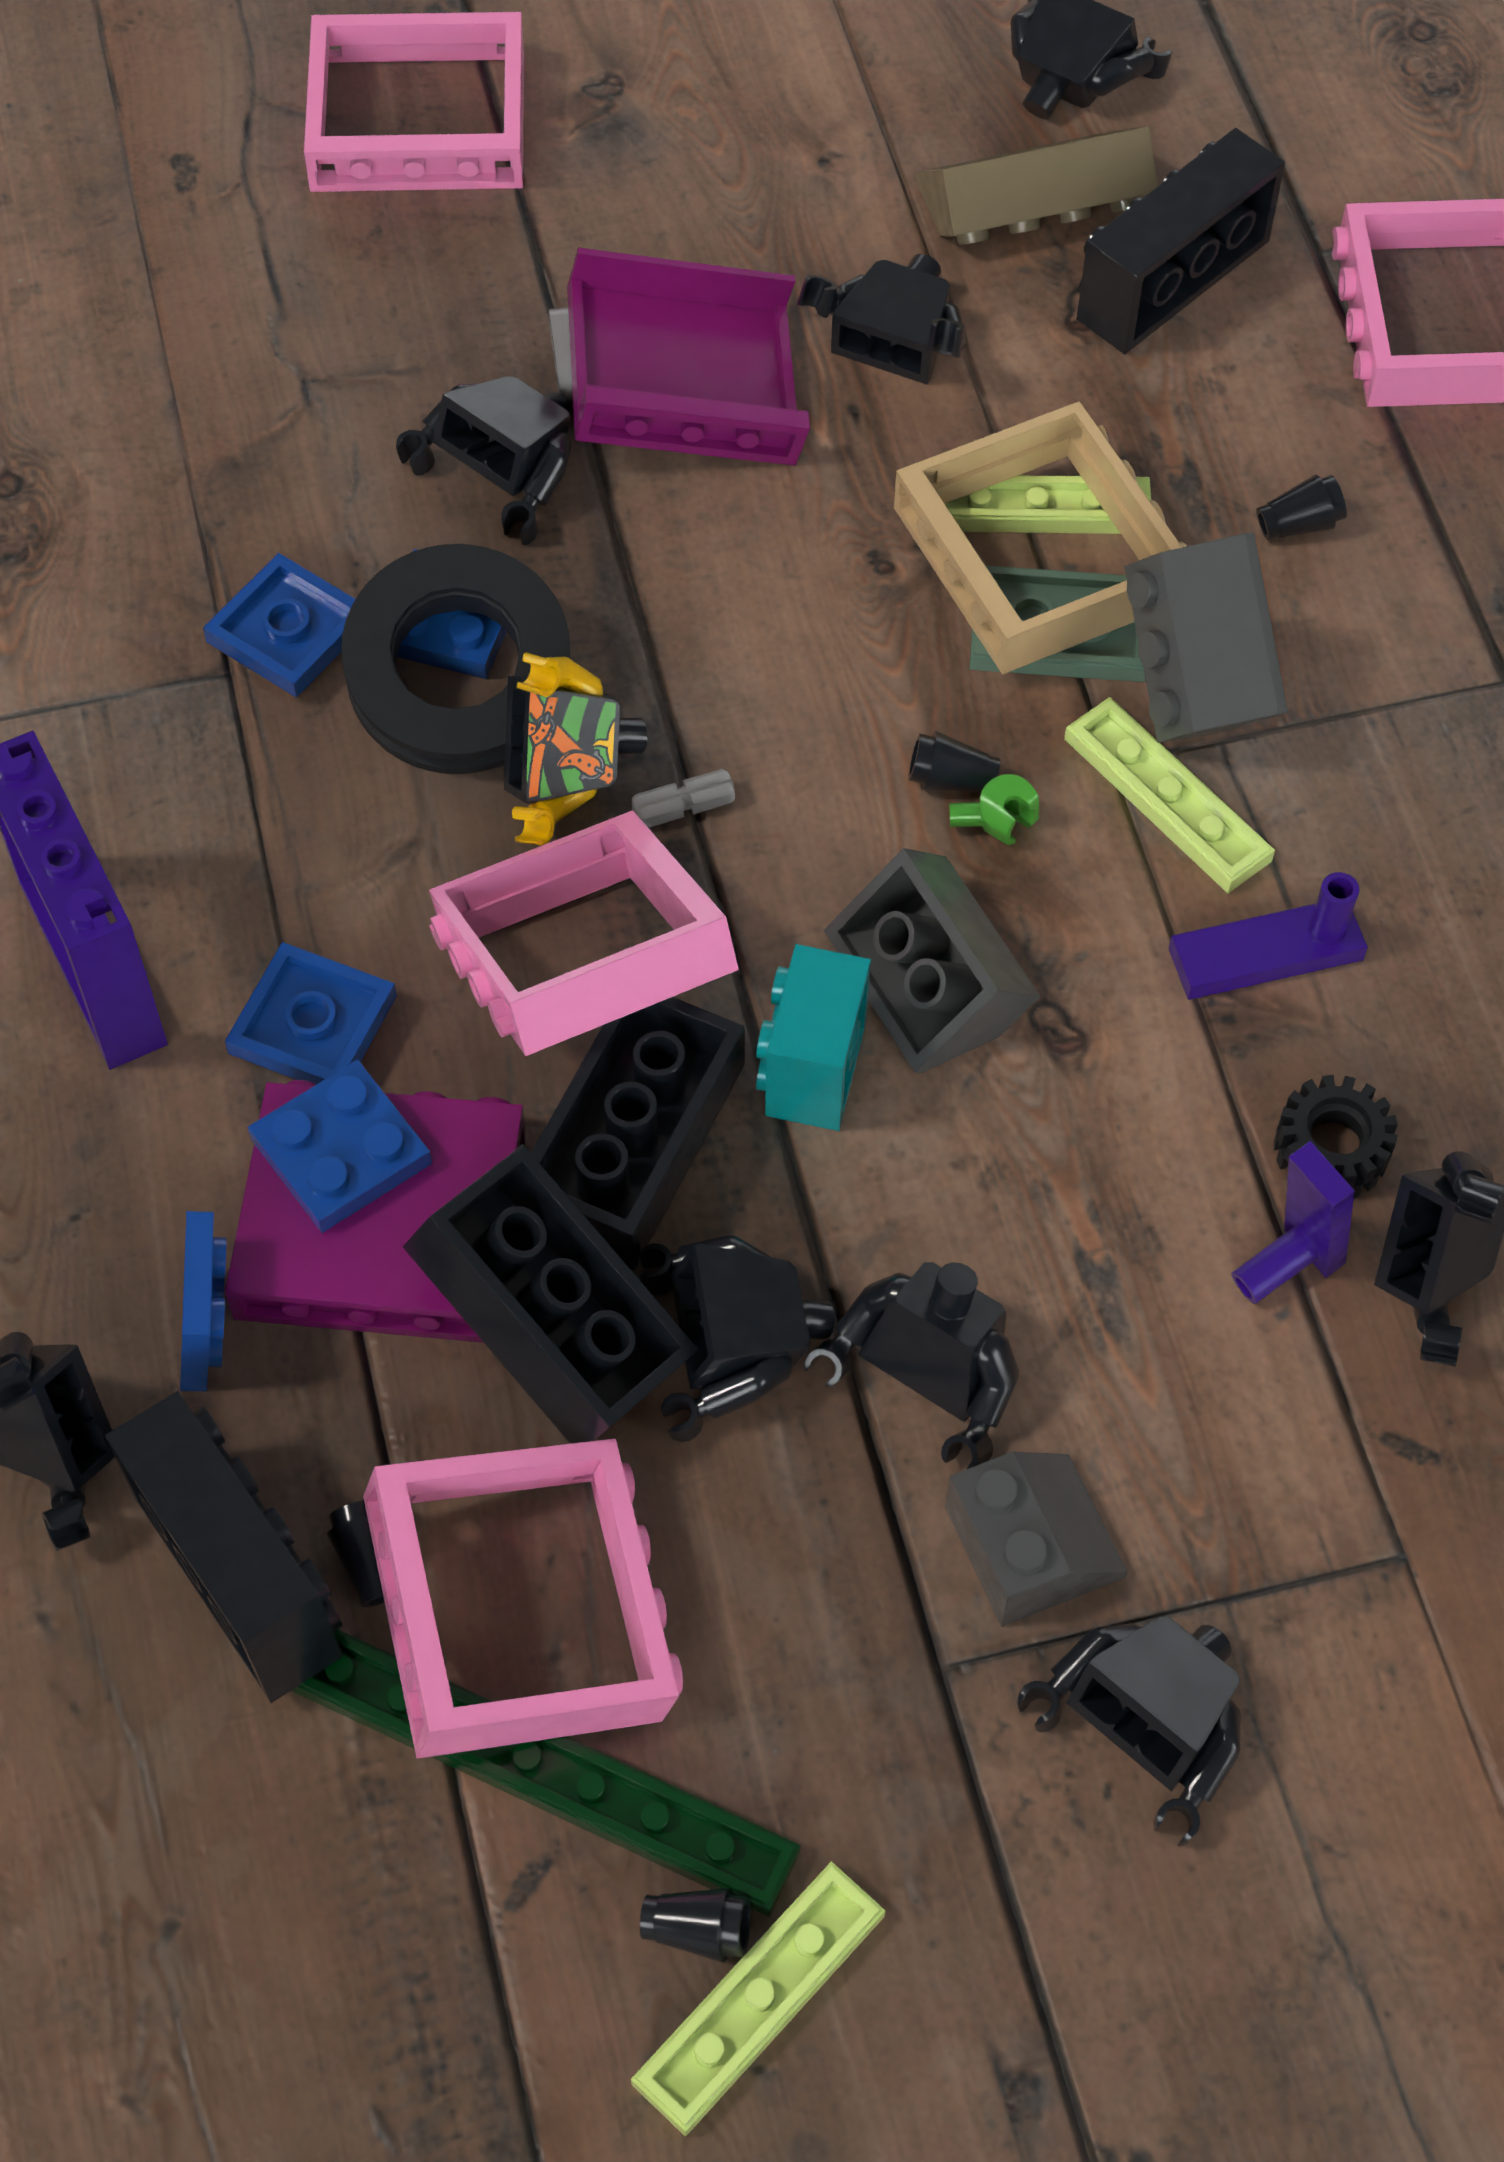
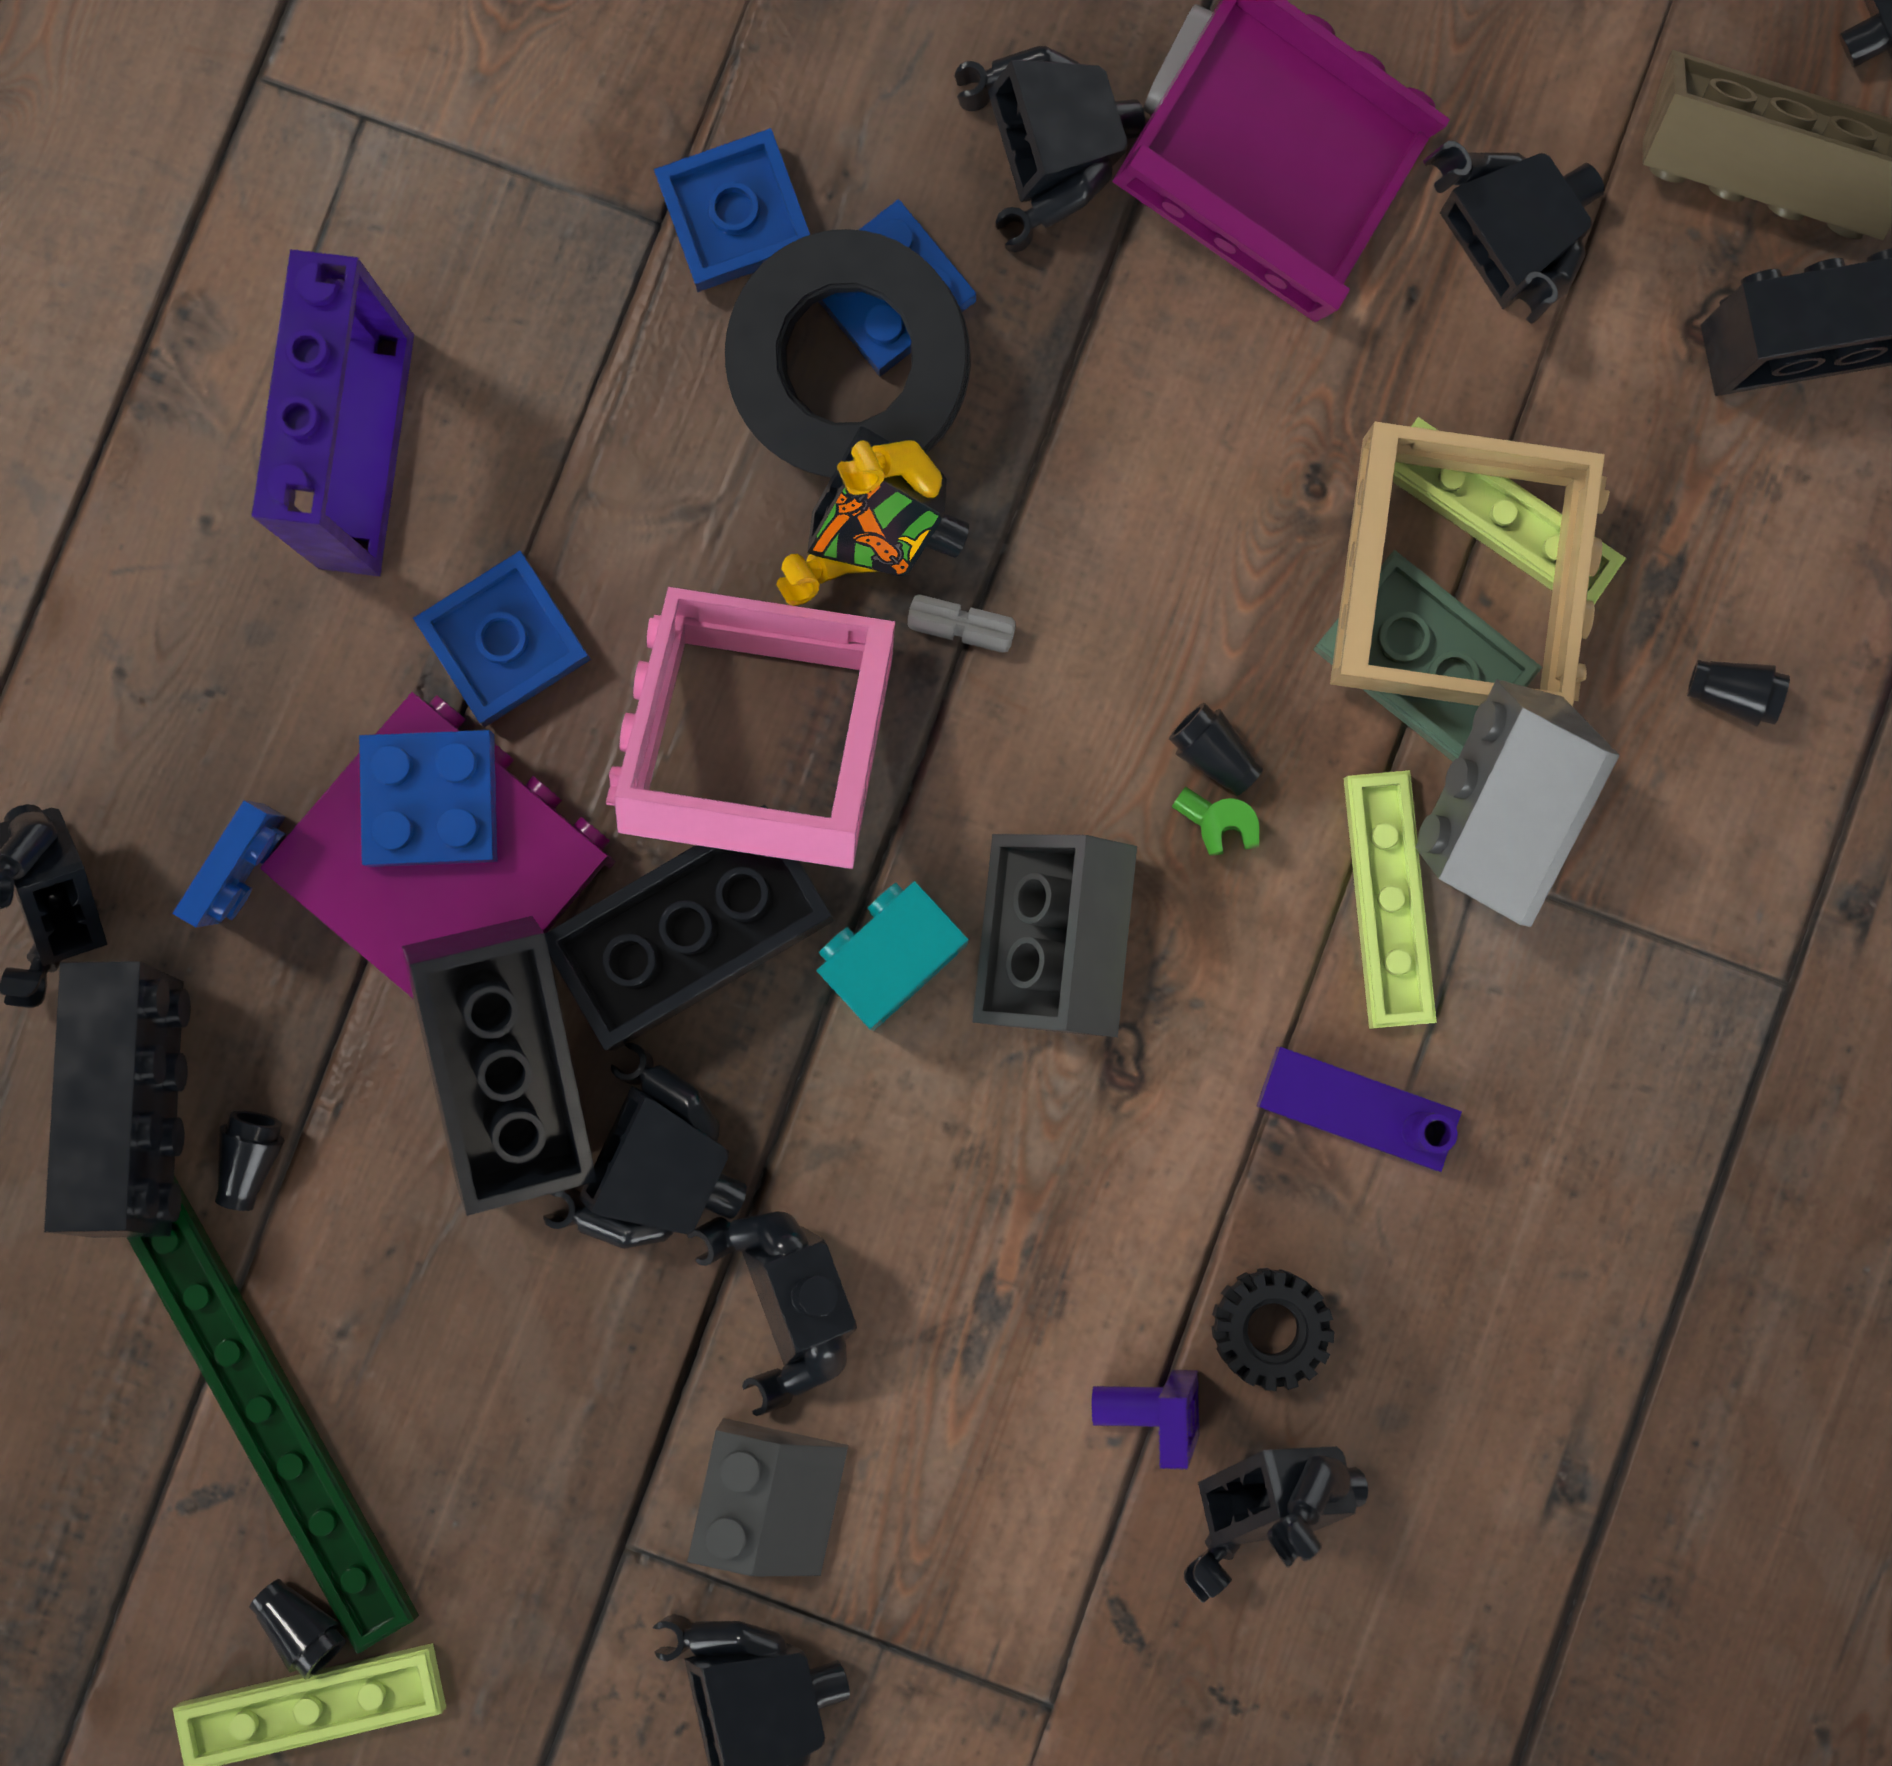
camera: 35 degrees right, 25 degrees up
(433, 1720) = (420, 1352): bright pink window -> none

